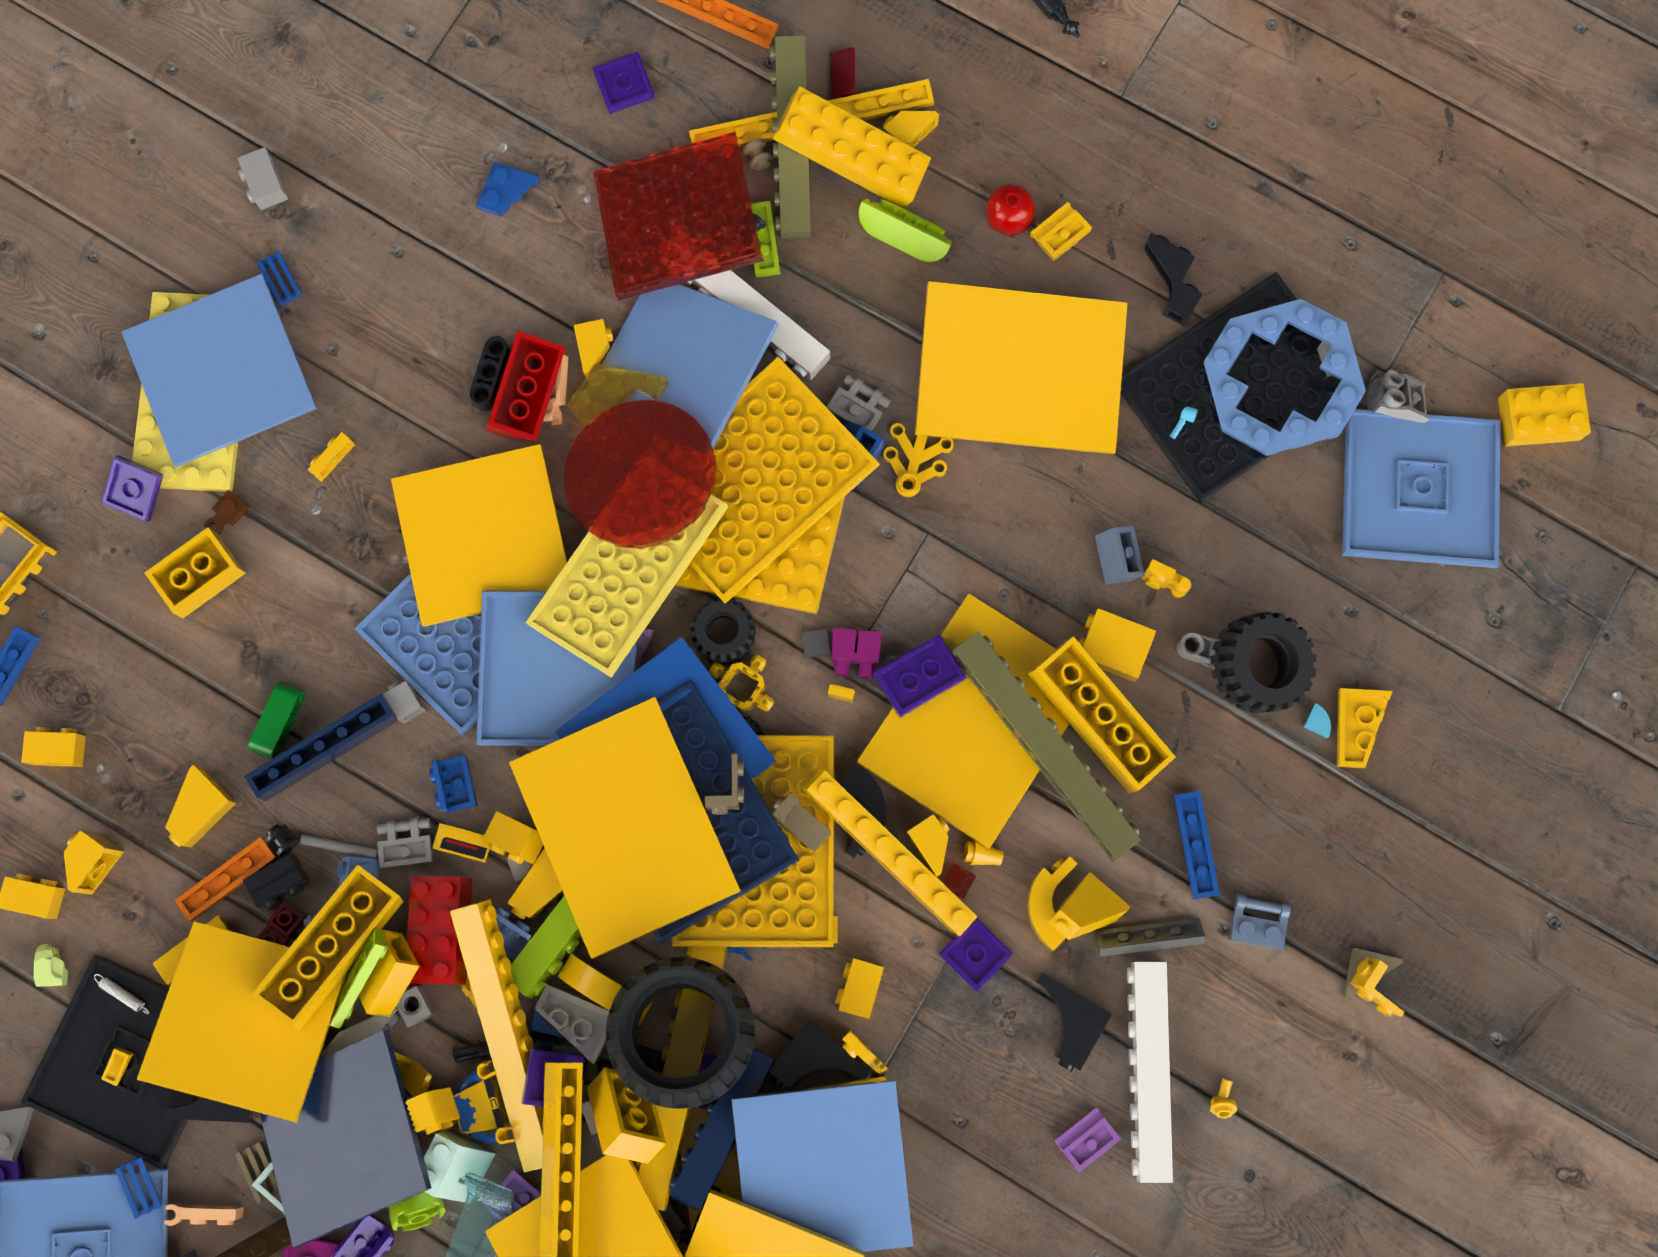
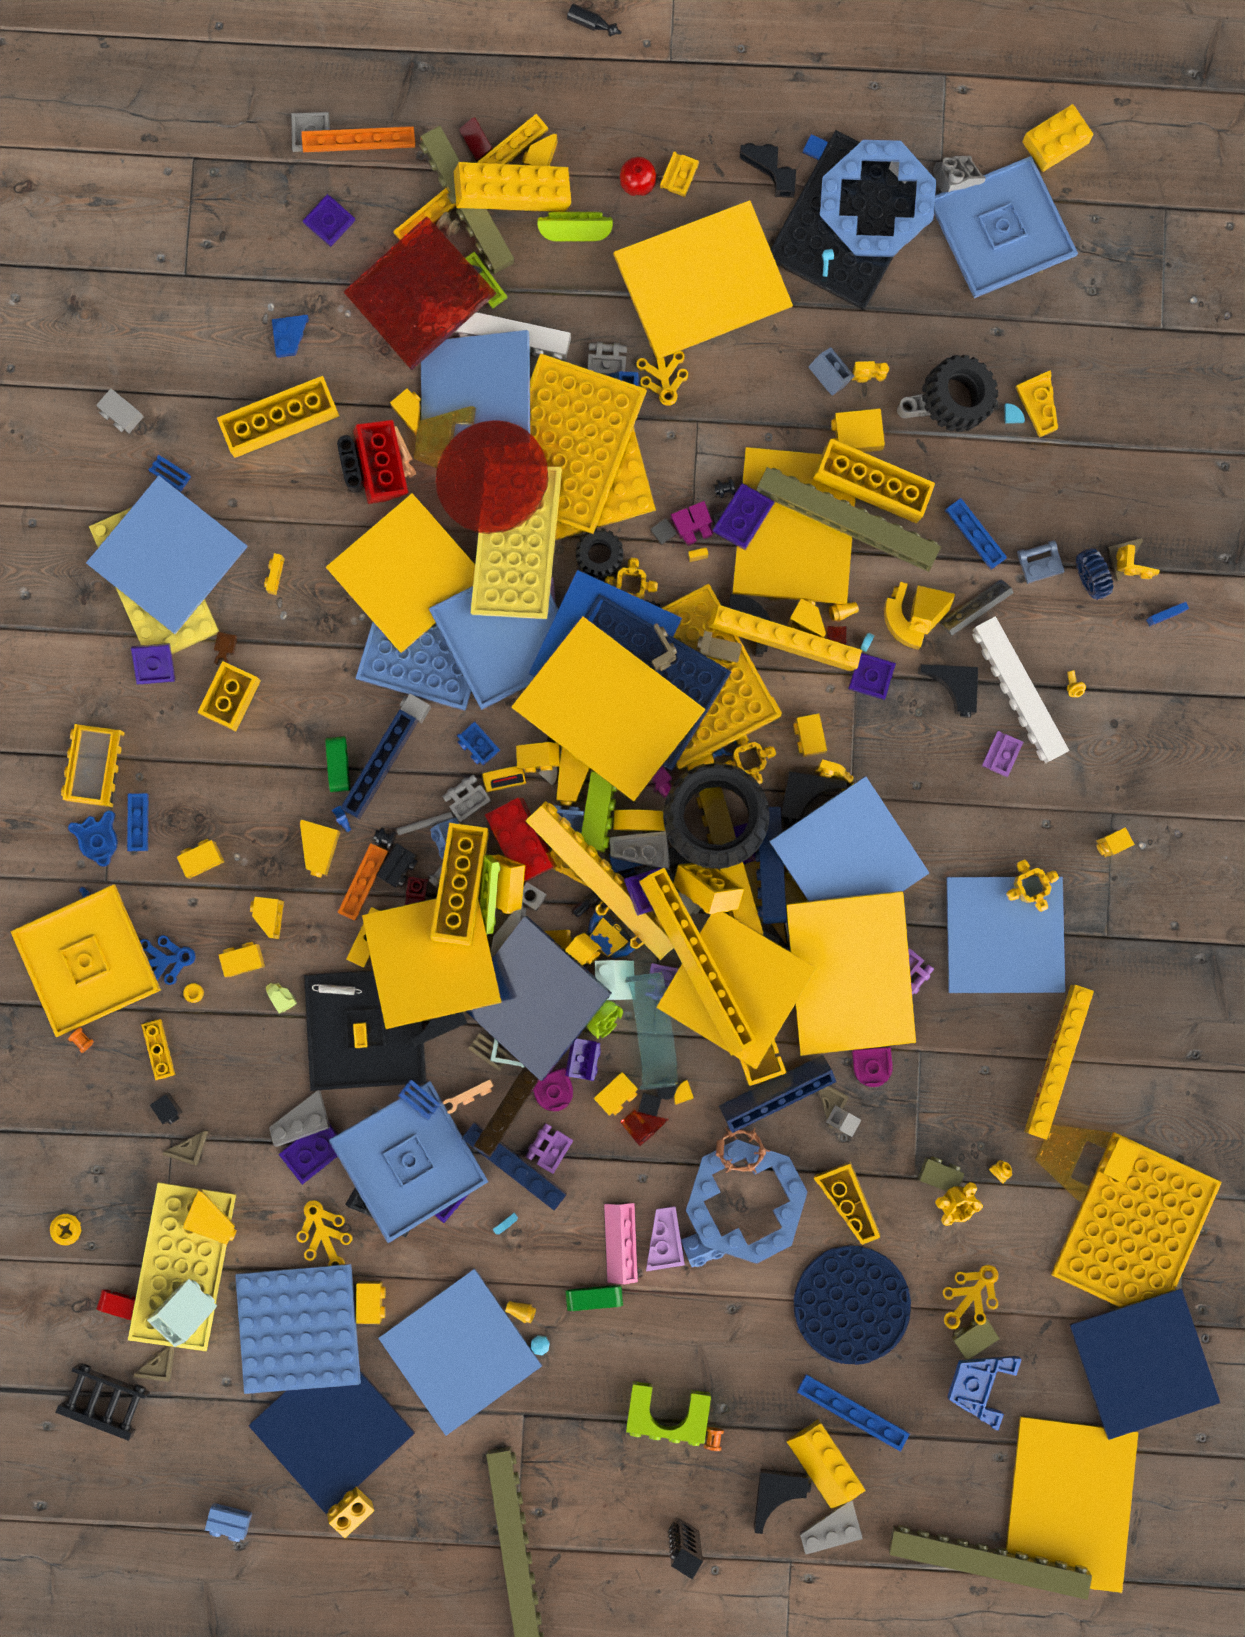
camera: 30 degrees left, 5 degrees up
(244, 790) = (341, 818): none -> blue piece
(436, 276) = (278, 416): none -> yellow brick
(646, 947) = (661, 782): none -> magenta hips
(765, 1007) = (768, 752): none -> yellow piece
(916, 628) = (724, 487): none -> black wheel
(991, 908) = (866, 642): none -> medium azure tile
(1240, 279) = (815, 147): none -> blue tile
(1318, 974) = (1094, 573): none -> dark blue gear
(1387, 1072) = (1171, 612): none -> blue tile

